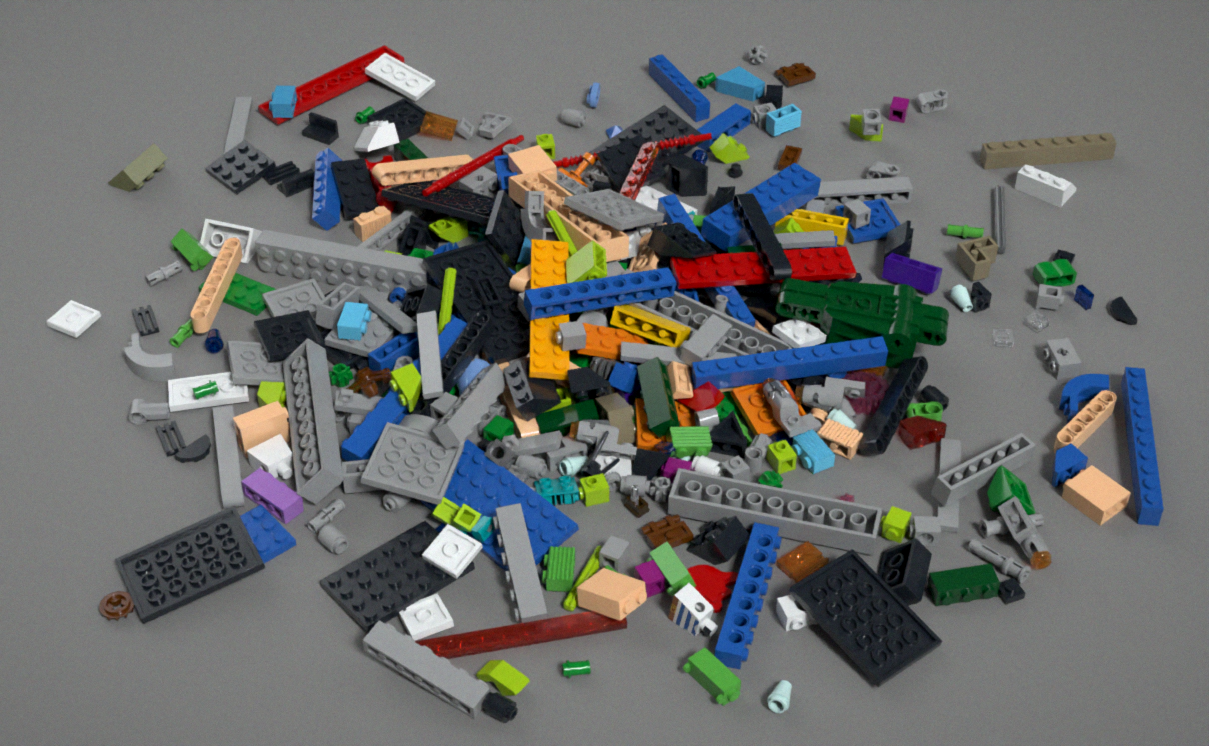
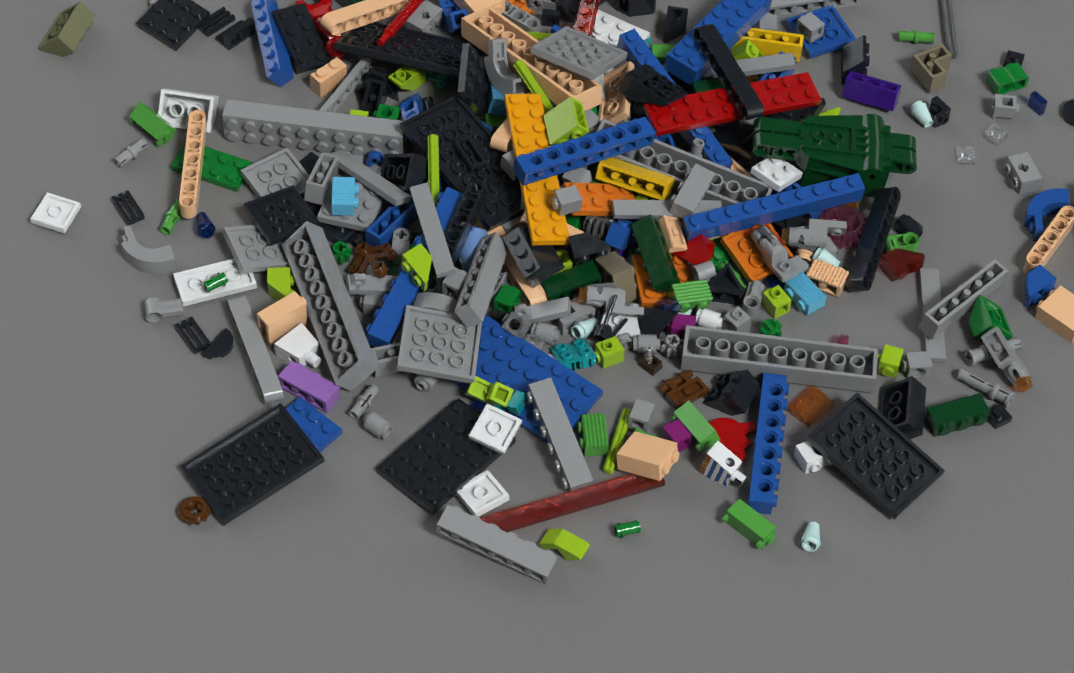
camera: 10 degrees left, 10 degrees up
(500, 706) = (568, 571): black brick -> none

